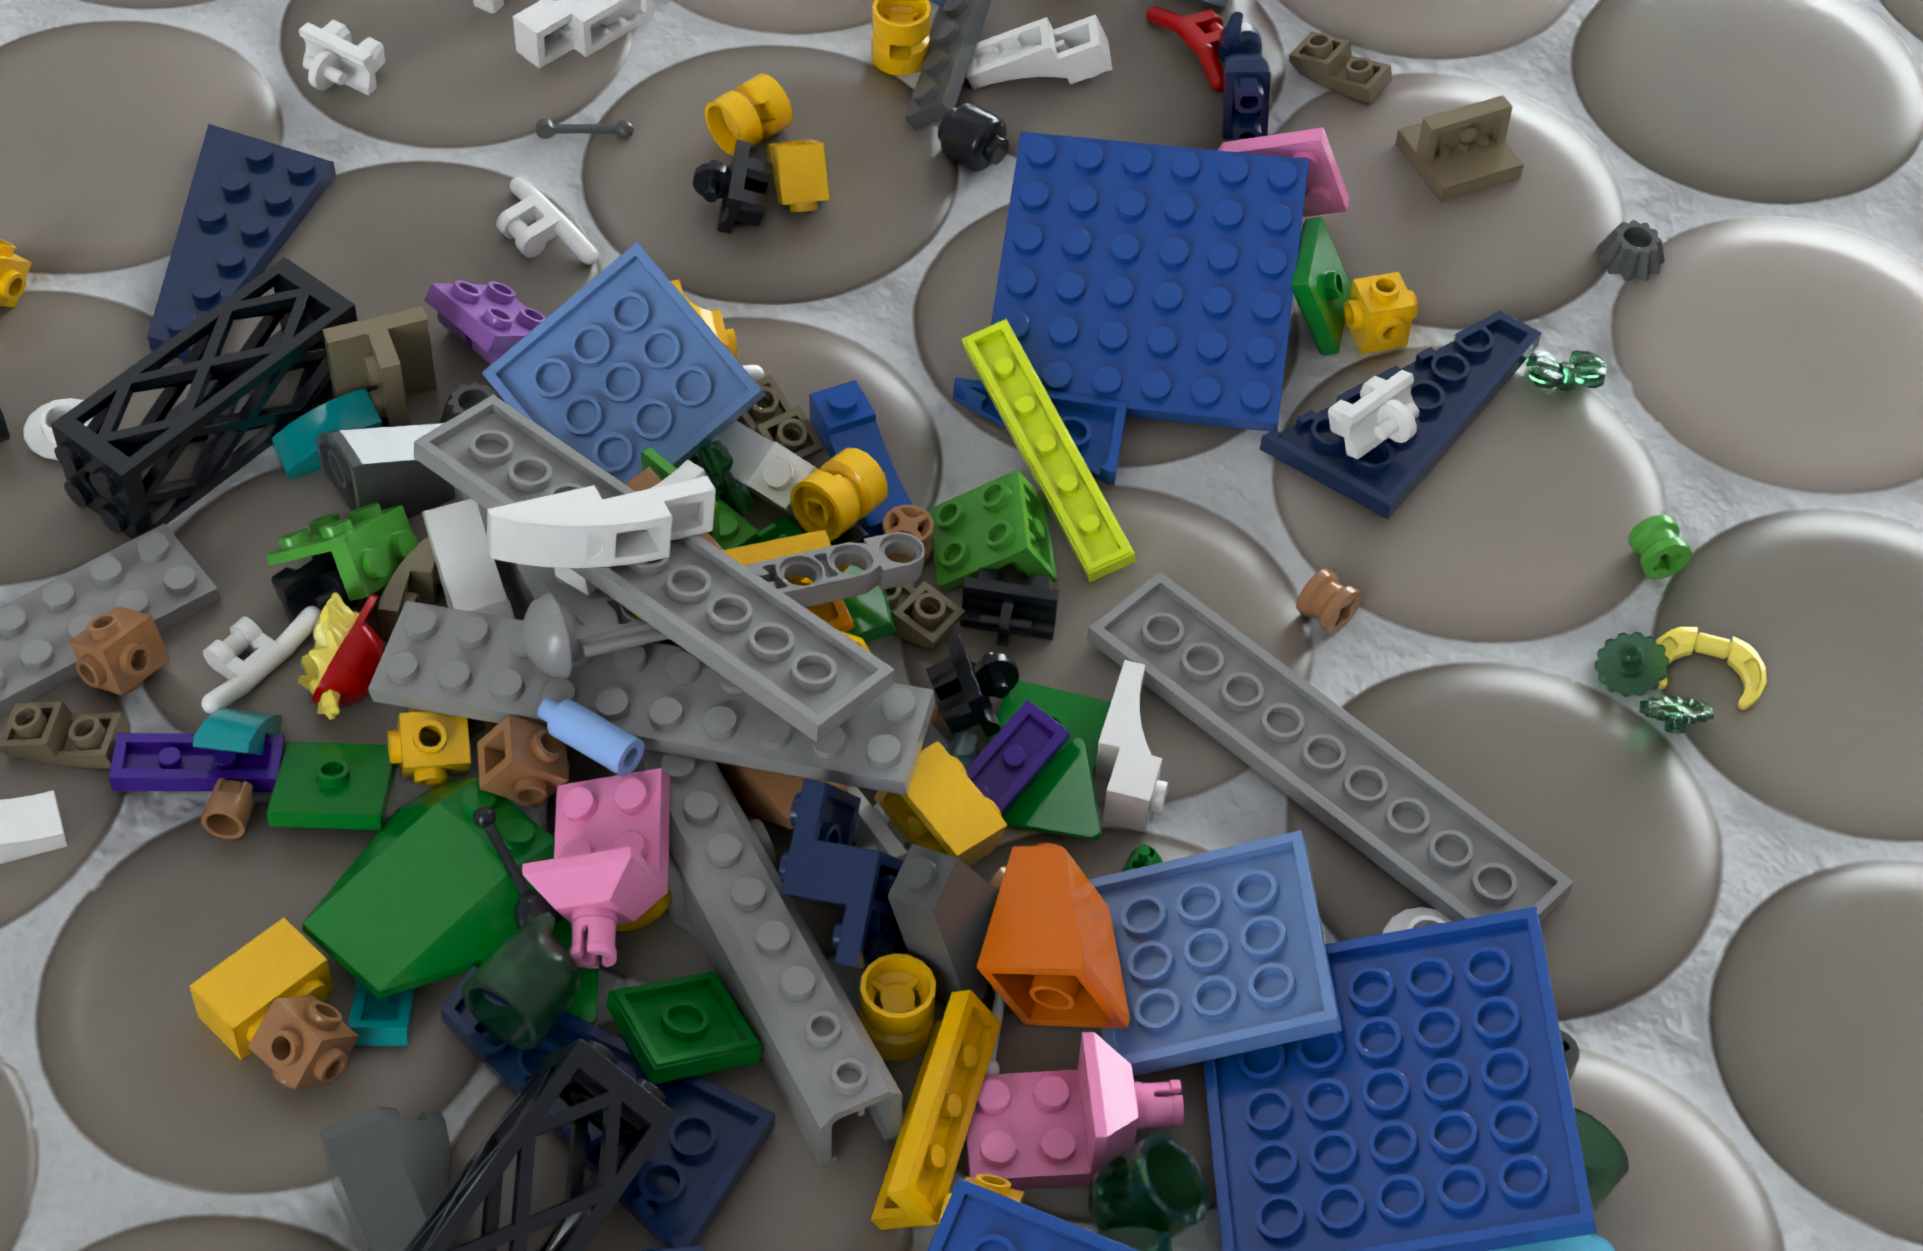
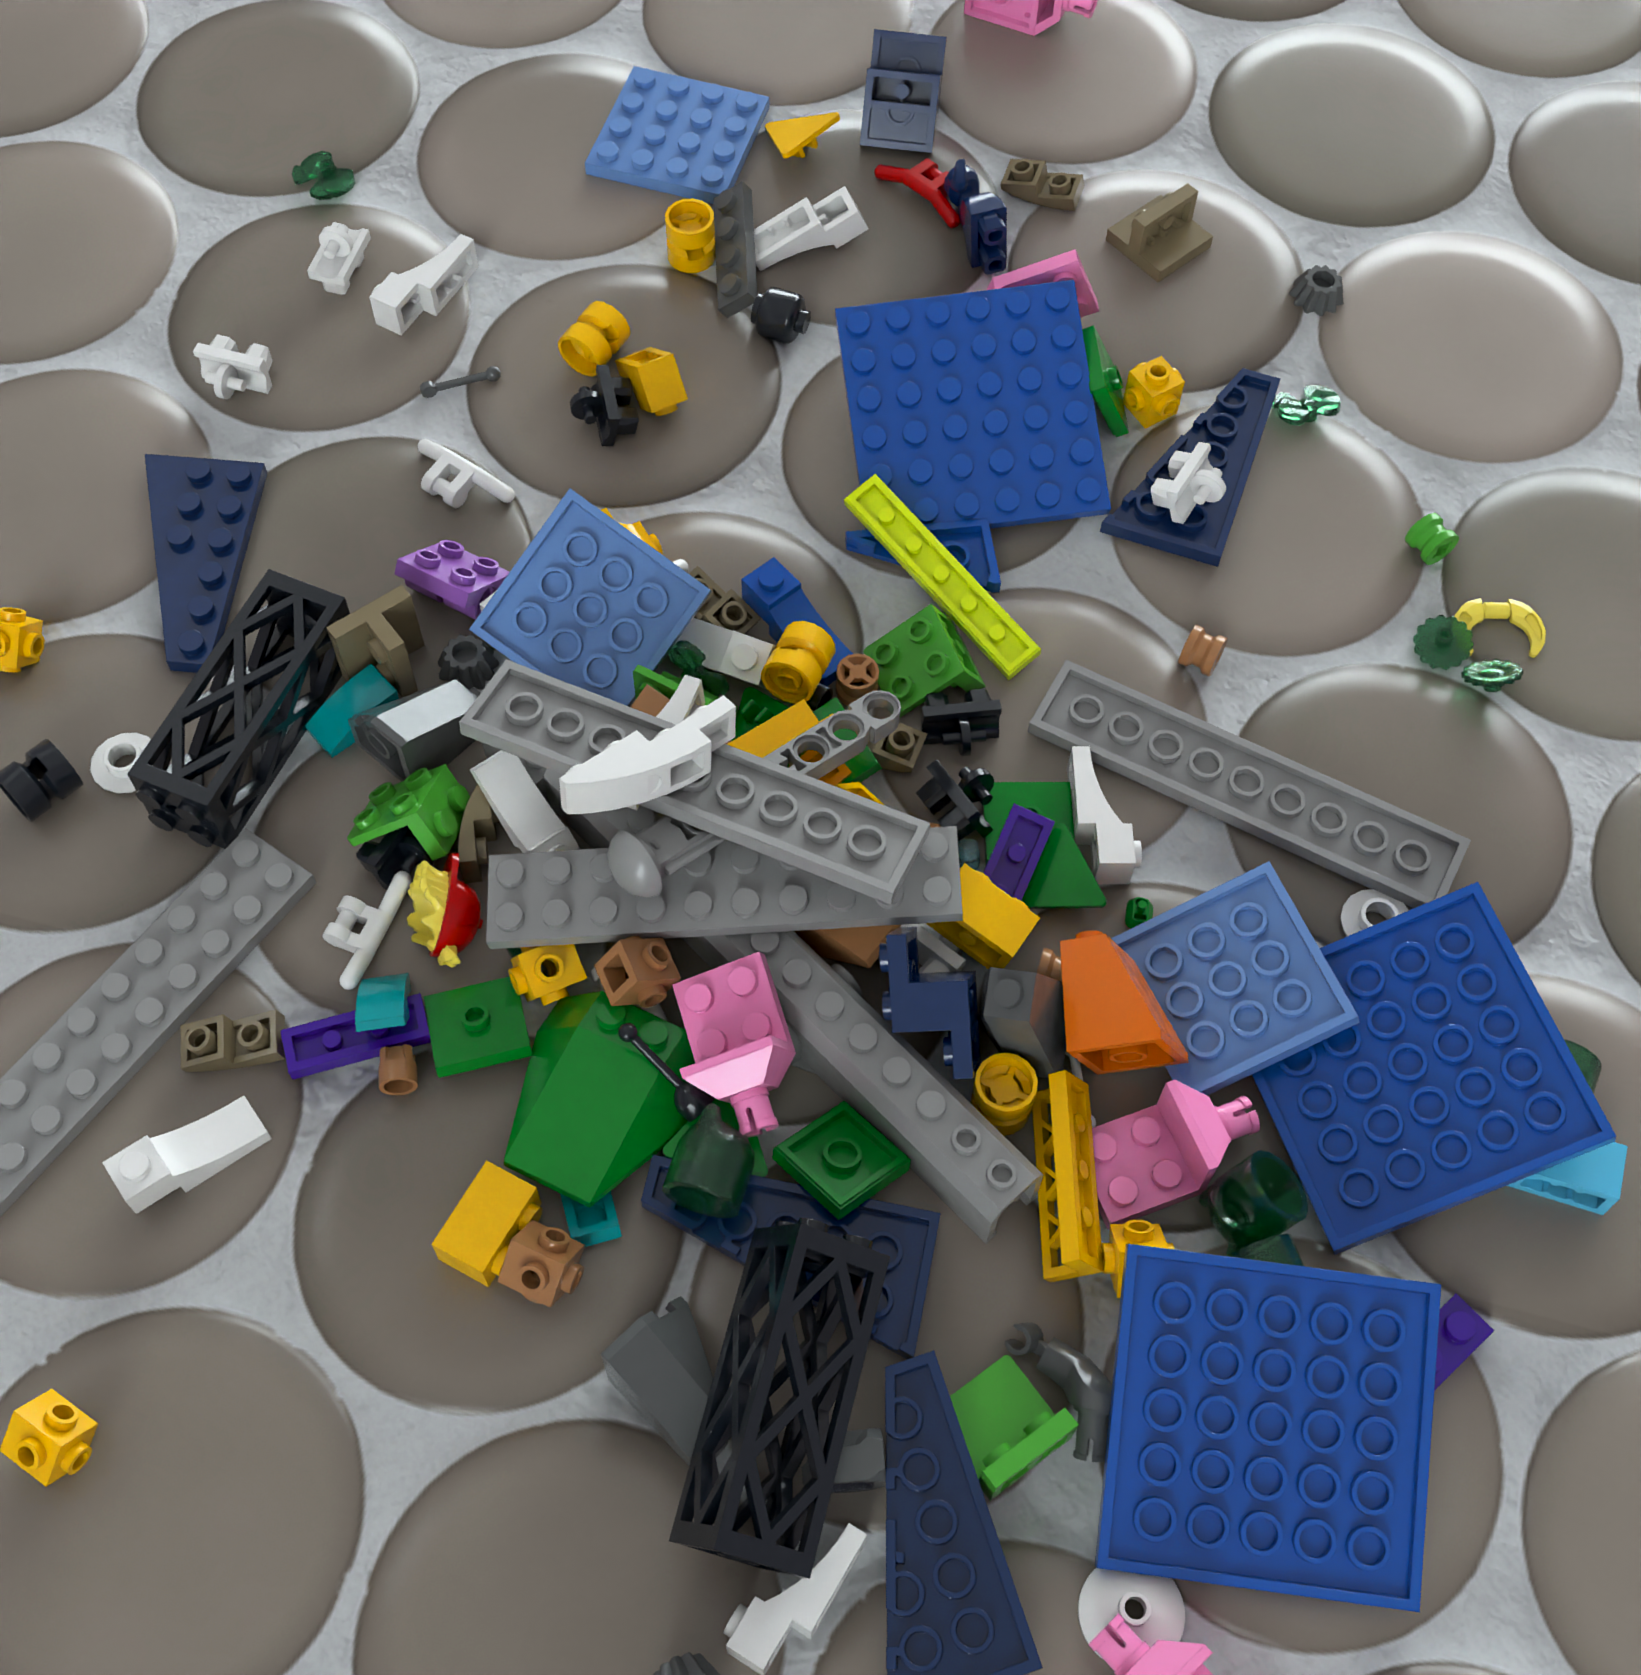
camera: 15 degrees left, 10 degrees up
(119, 650) = (254, 956): medium nougat brick -> none
(592, 735) = (693, 939): light blue cylinder -> none

